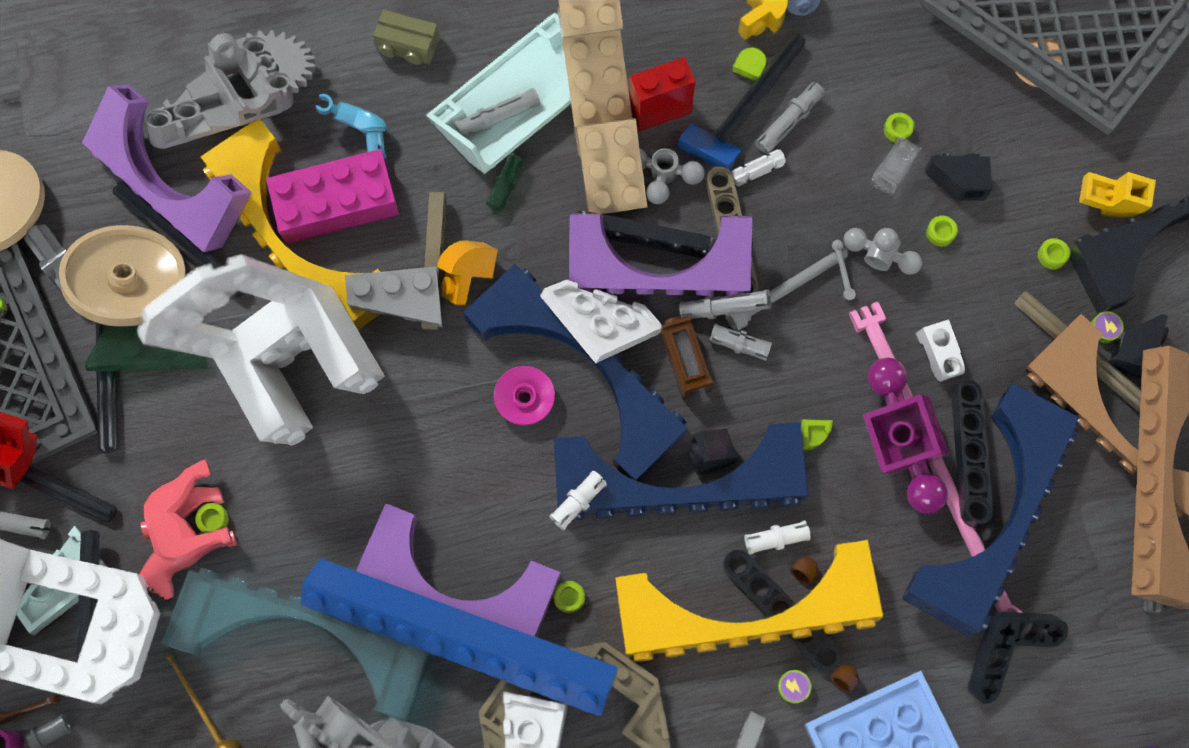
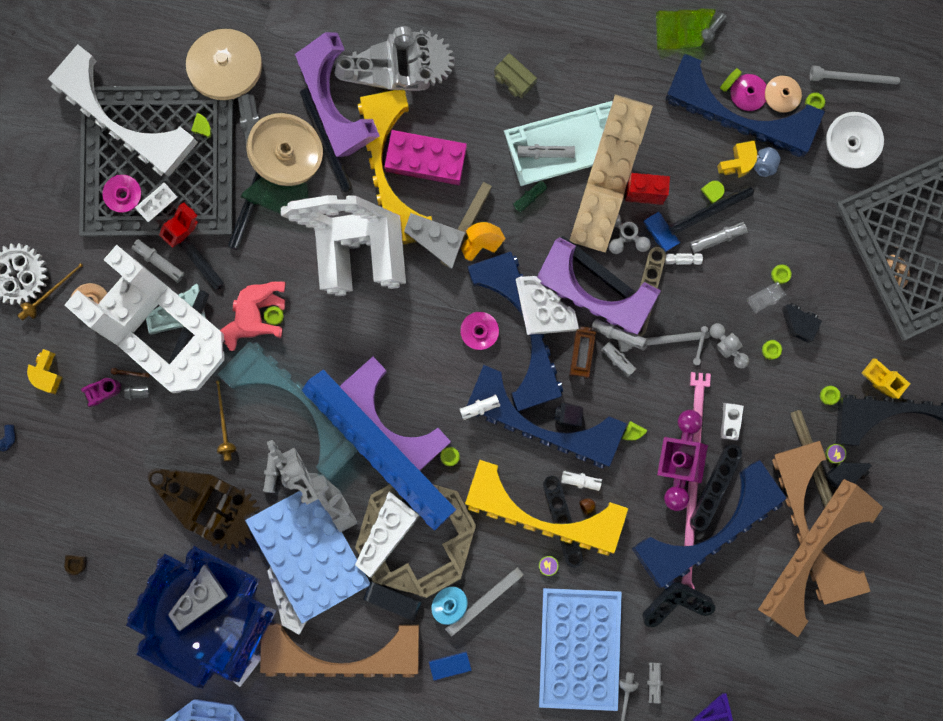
camera: 25 degrees right, 10 degrees up
(360, 119) = (465, 119): medium azure arm -> none
(845, 678) = (578, 575): reddish brown hinge -> none

